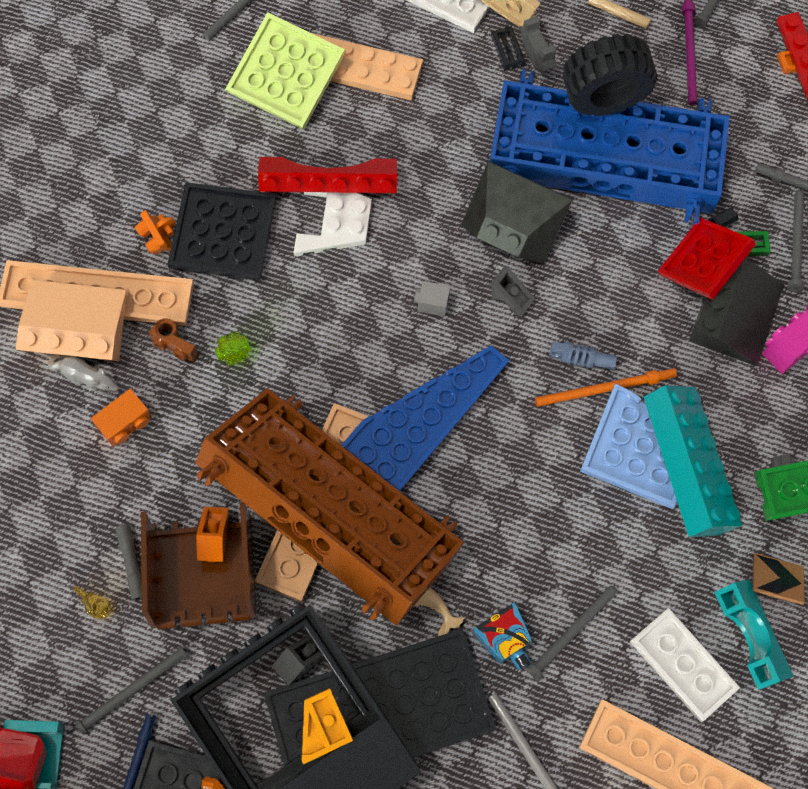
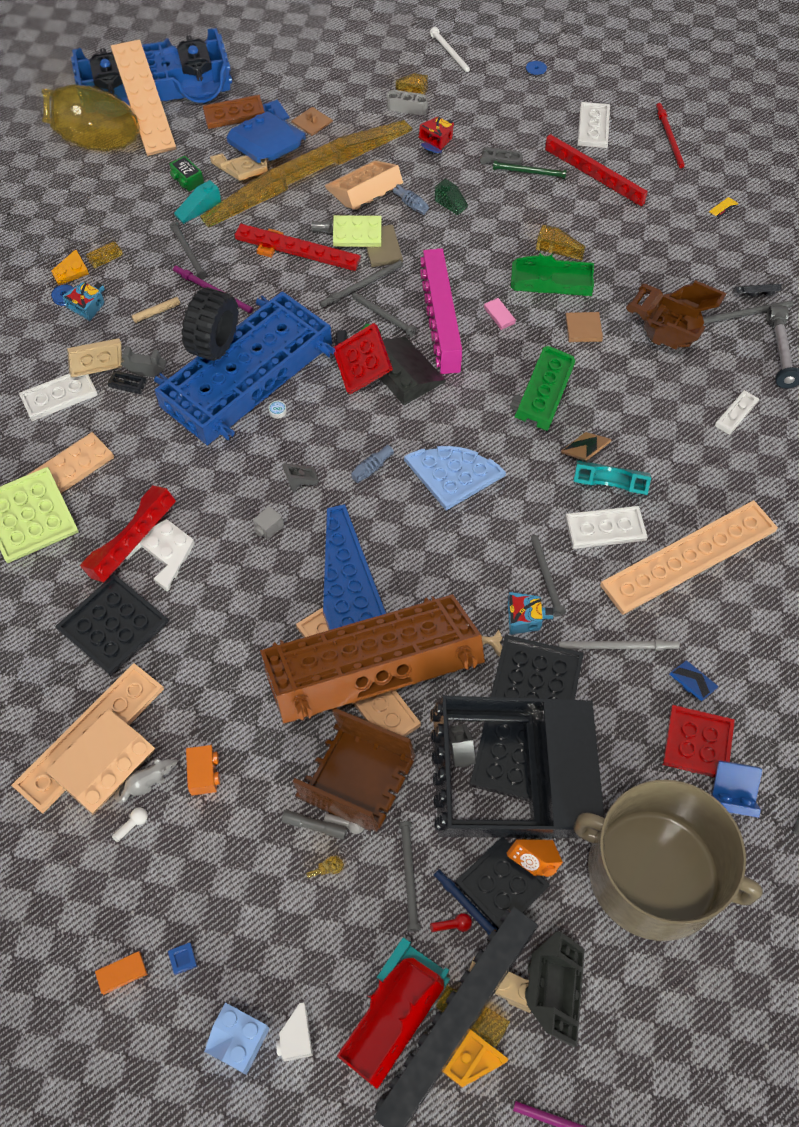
camera: 55 degrees left, 10 degrees down
(45, 392) = (137, 817): none -> white bar
(115, 772) = (461, 922): none -> red bar
(158, 229) = (86, 669): orange hips -> none
(180, 348) = (172, 703): dark orange plate -> none
(212, 534) = (336, 751): orange slope -> none
(232, 348) = (207, 665): clear neon green head -> none
(323, 726) = (528, 738): light orange wing -> none
(515, 213) = (248, 440): pearl dark grey slope -> none
(583, 215) = (277, 409): none -> tile
(650, 377) = (413, 437): orange bar -> none
(692, 461) = (484, 442): teal brick -> none

